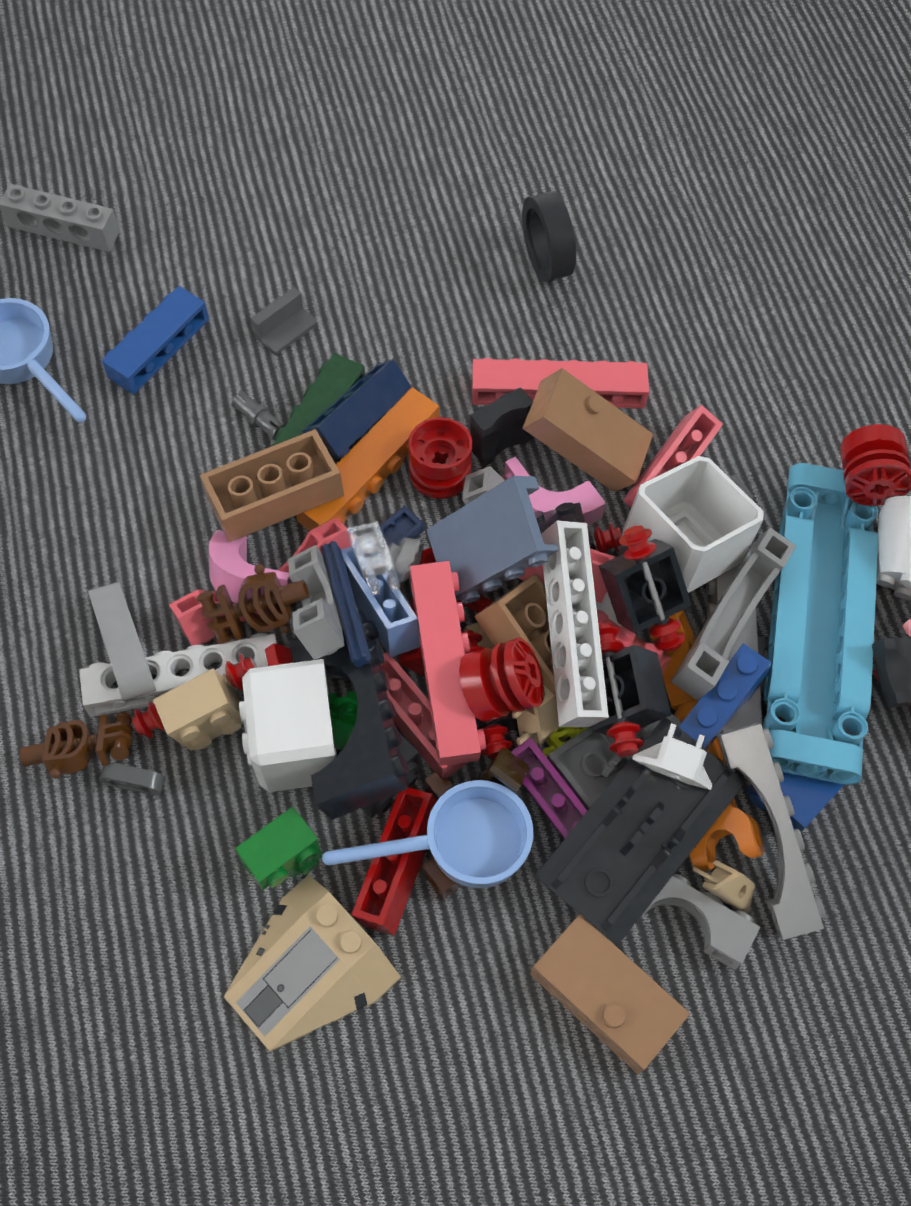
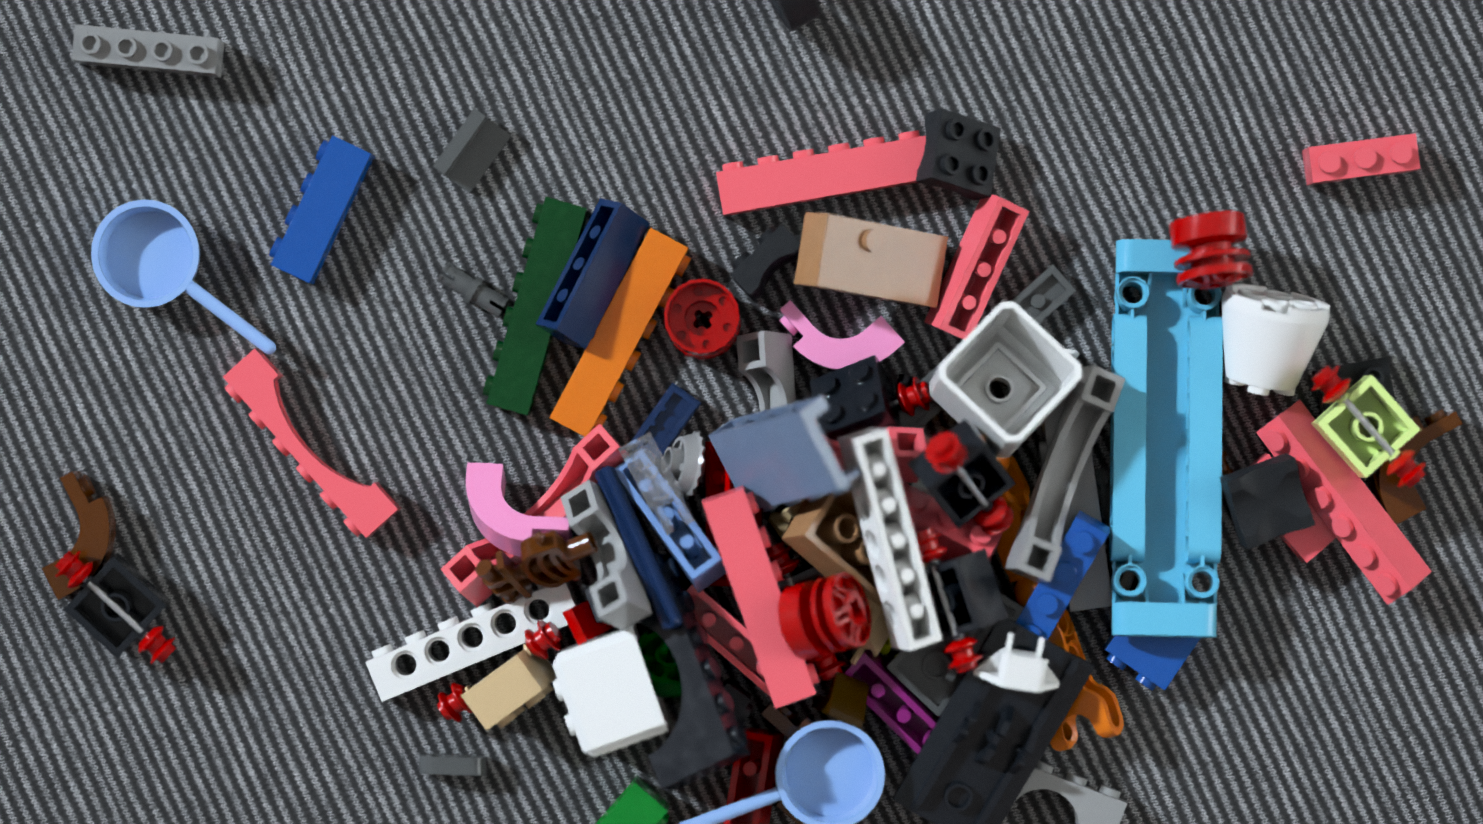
camera: 10 degrees left, 25 degrees up
(71, 746) = (364, 751): reddish brown torso -> none
(121, 549) = (257, 385): none -> coral arch
(121, 641) = (401, 623): light grey beam -> none
(272, 485) = (521, 409): medium nougat brick -> none
(670, 379) = (959, 154): none -> black brick
(729, 886) = (1089, 766): tan piece -> none
(794, 905) = (1093, 641): light grey arch -> none

